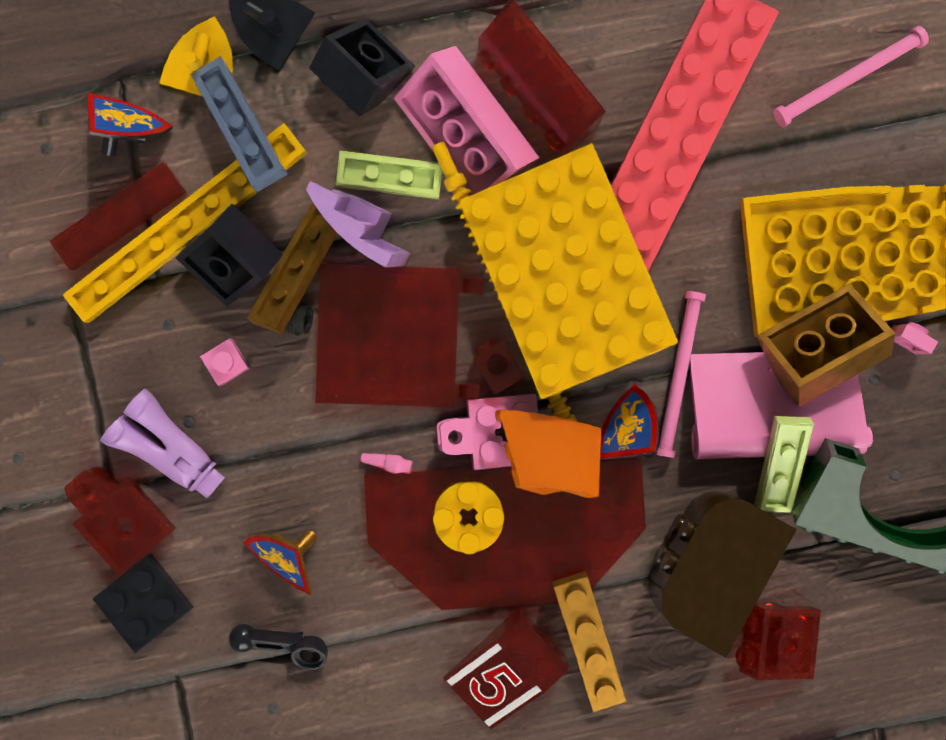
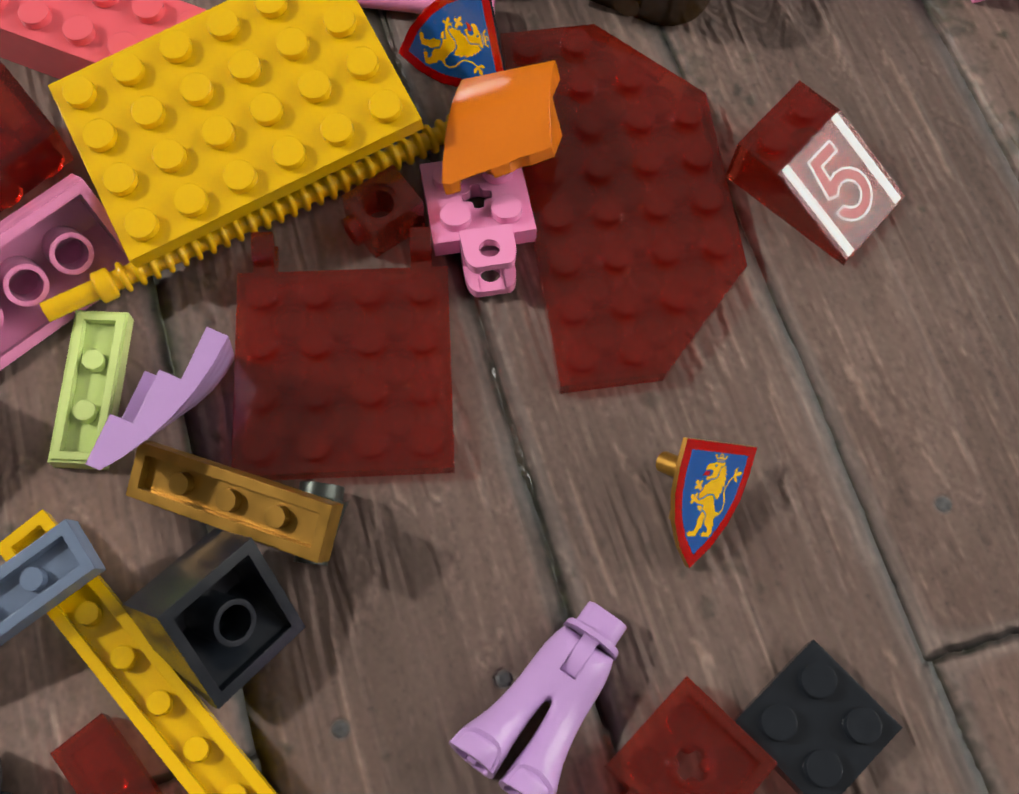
camera: 100 degrees left, 20 degrees down
(225, 362) = (398, 619): bright pink plate -> none
(245, 637) = (845, 445): black piece -> none
(388, 462) = (538, 356): bright pink piece -> none
(468, 537) = (607, 201): yellow plate -> none
(589, 641) = (755, 76): pearl gold plate -> none

